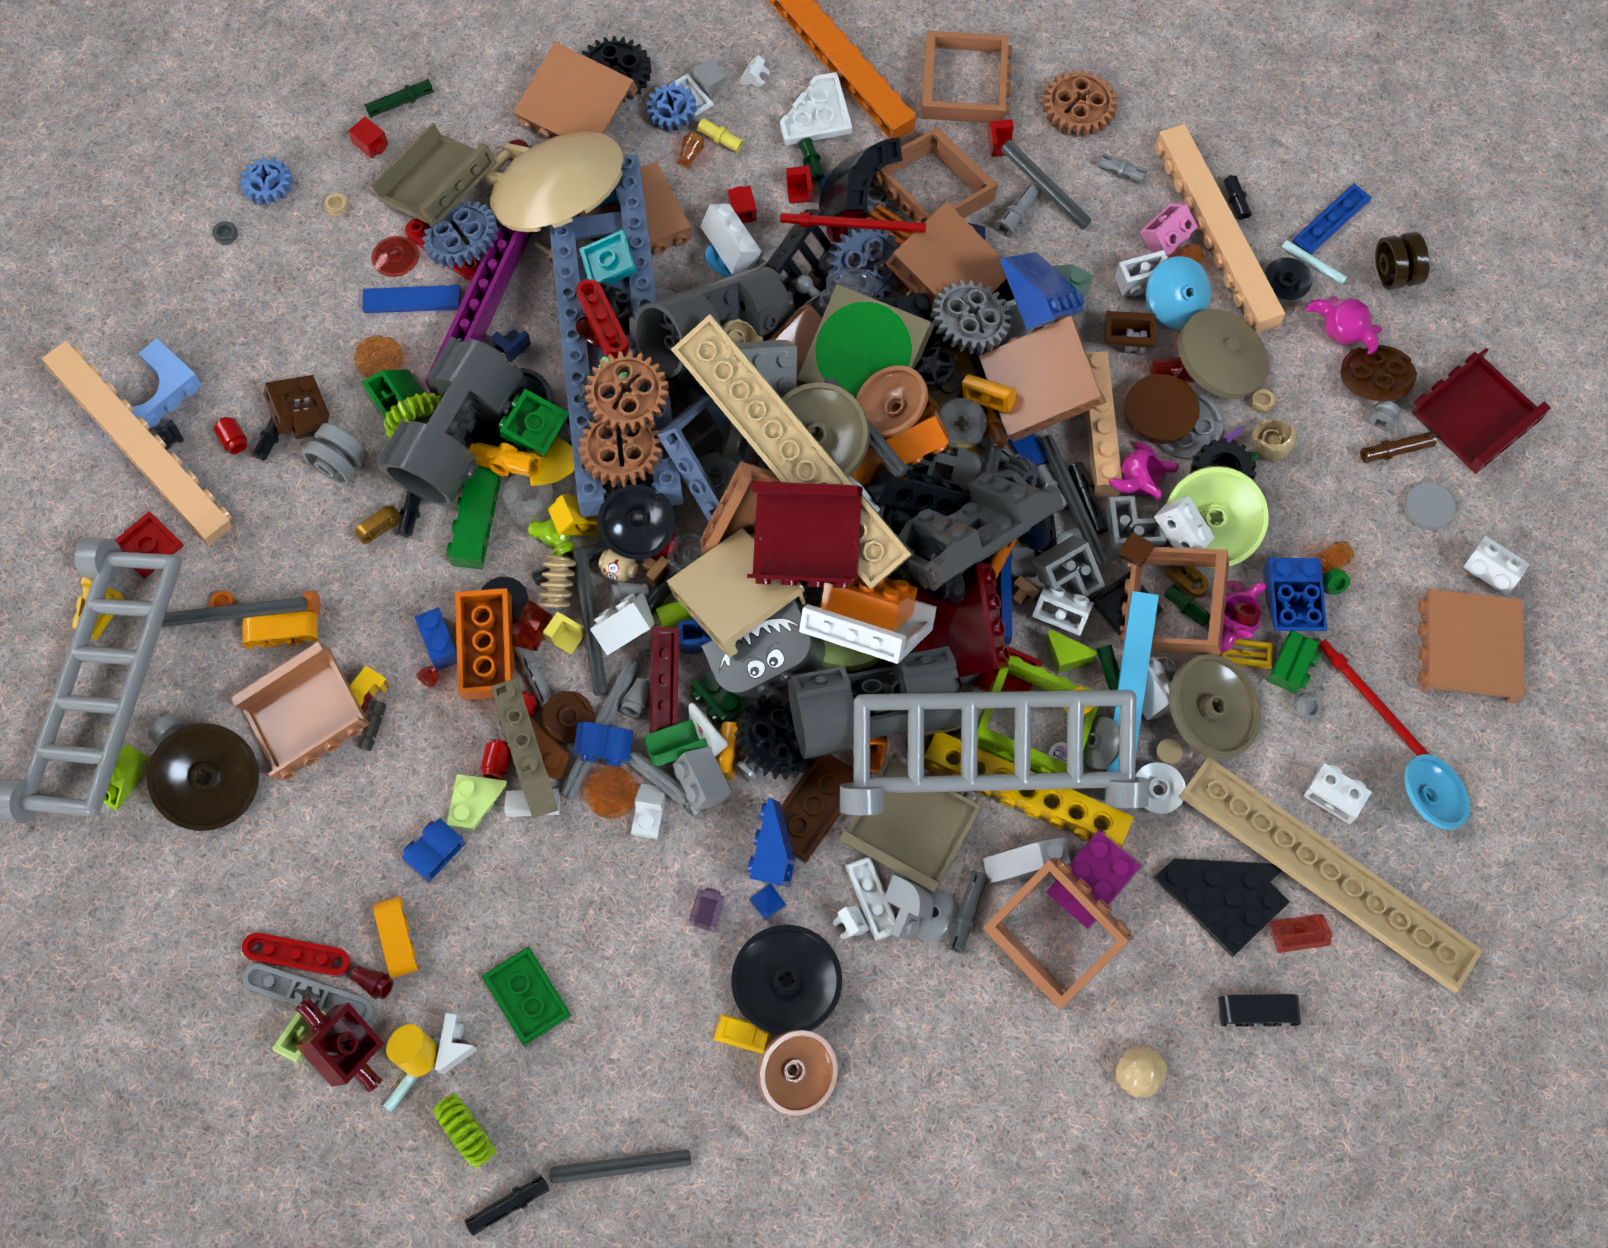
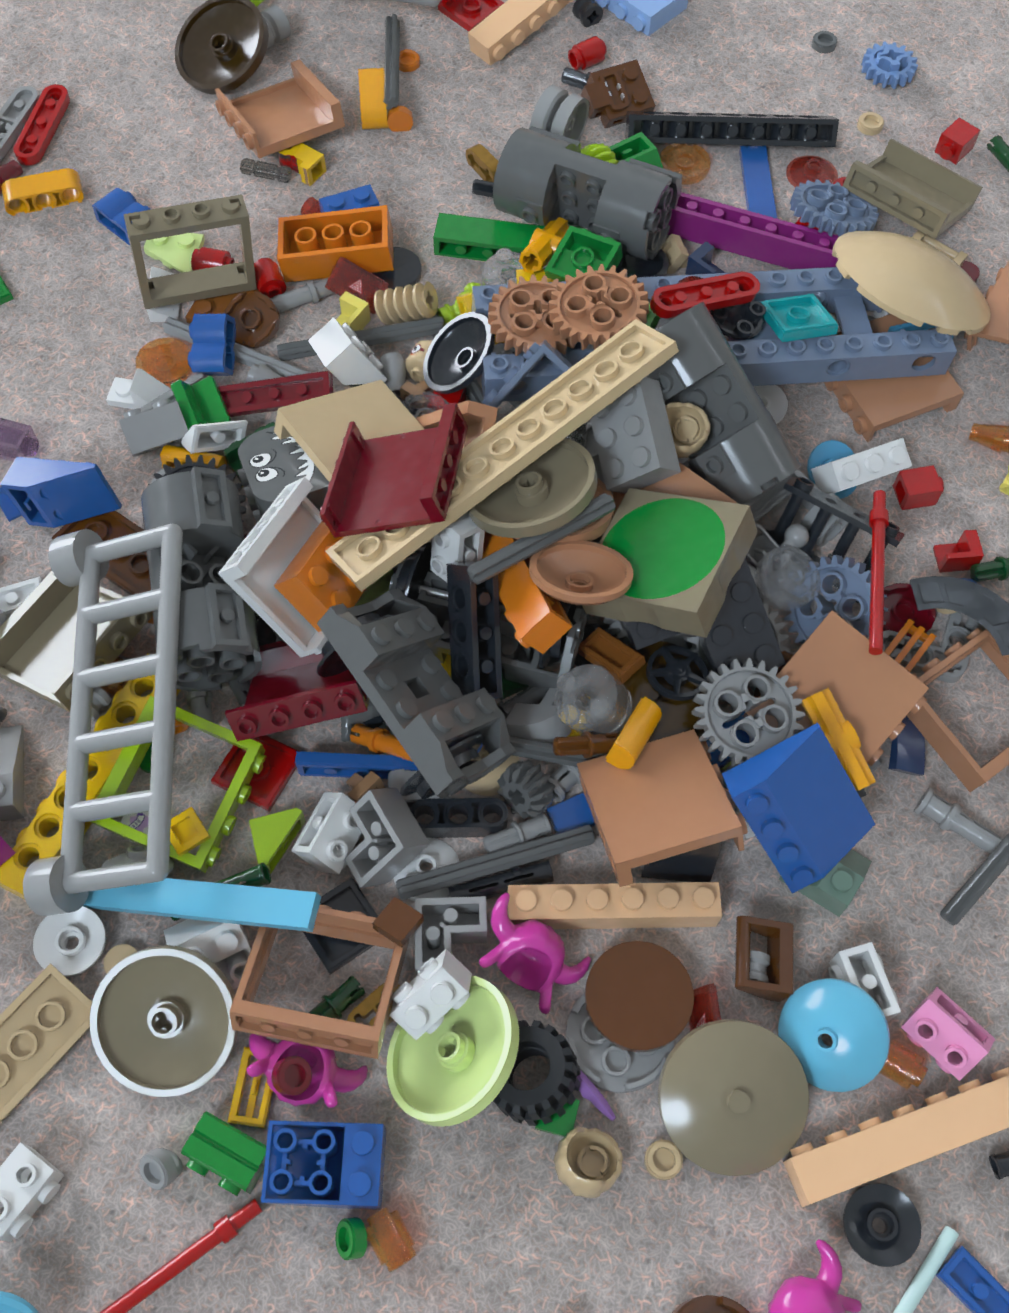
camera: 90 degrees right, 5 degrees down
(348, 315) = (733, 128): none -> black brick
(983, 263) = (840, 733): none -> light orange piece

